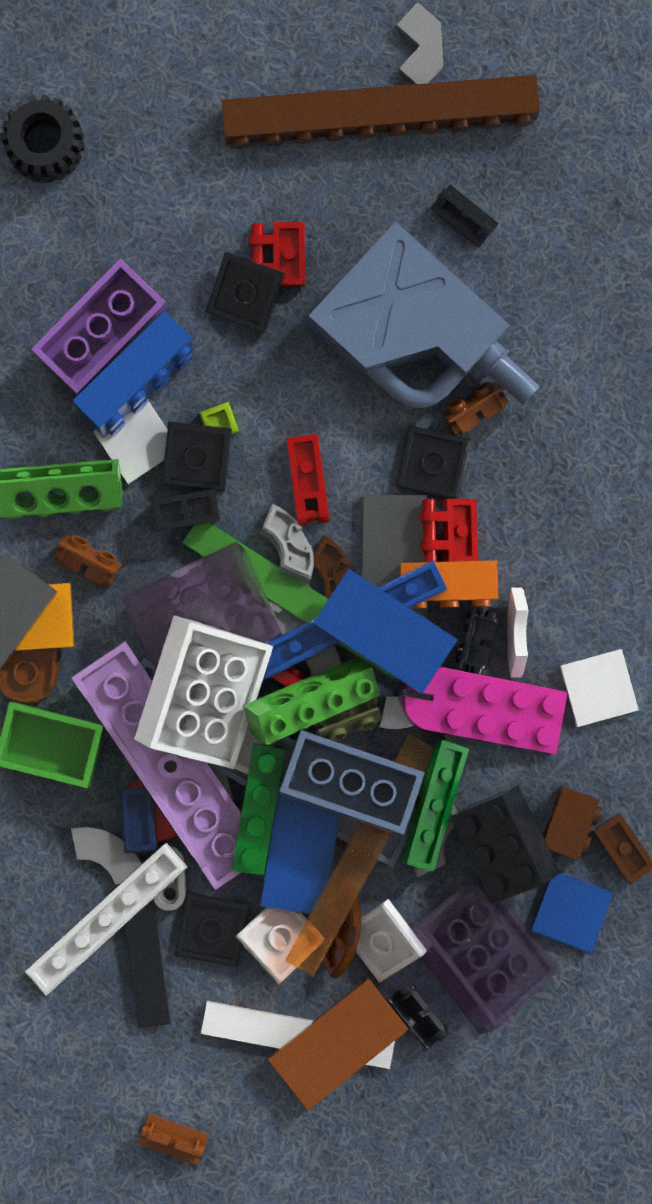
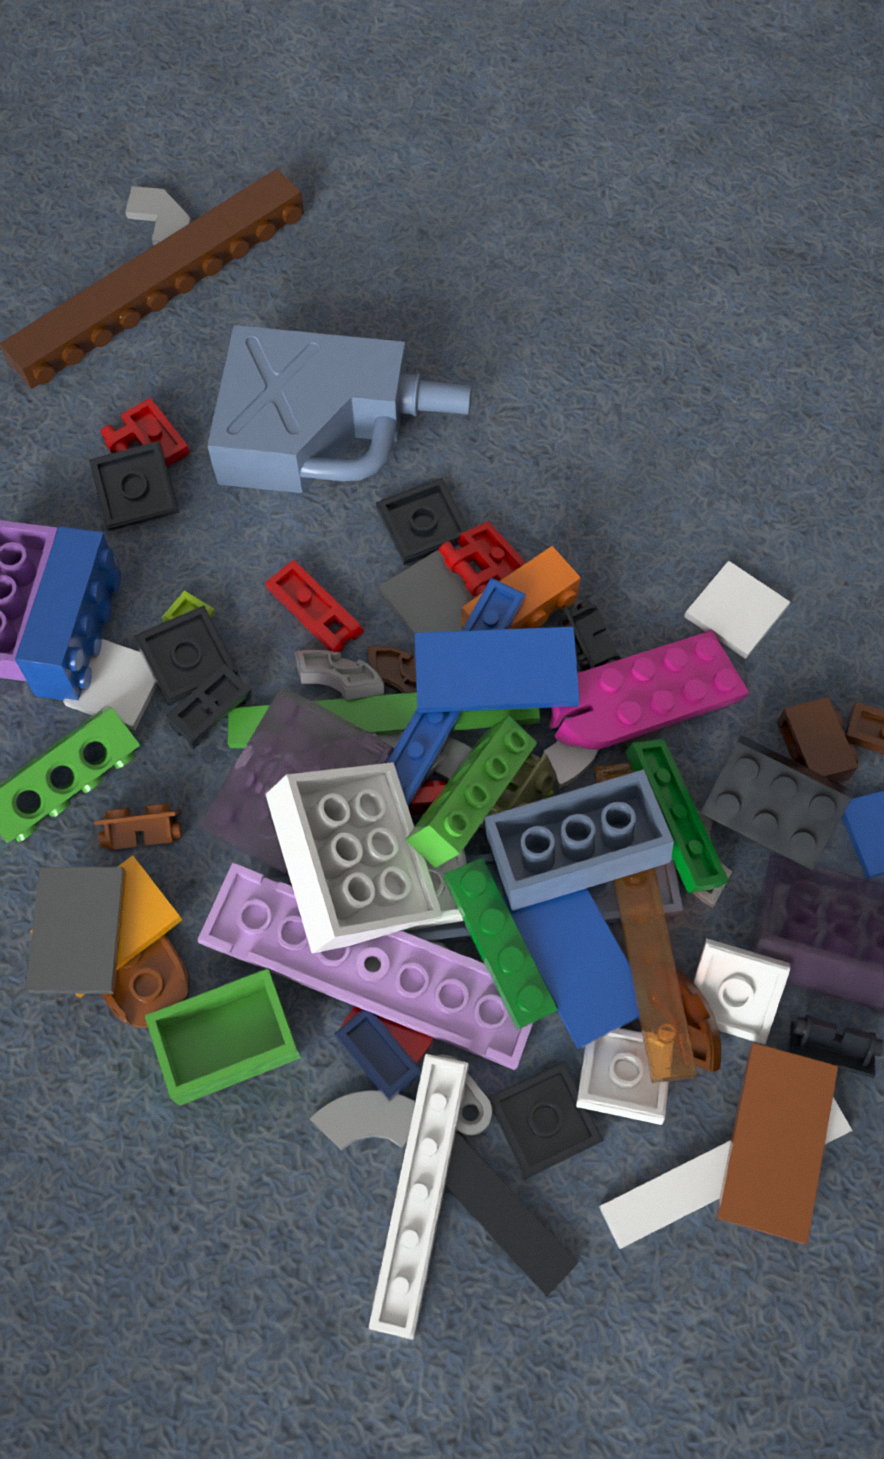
camera: 30 degrees left, 20 degrees down
(173, 1139) = (685, 1405): dark orange hinge -> none
(464, 215) = (298, 313): black hinge -> none
(464, 412) = (431, 438): dark orange hinge -> none
(516, 632) = (621, 608): white tile -> none

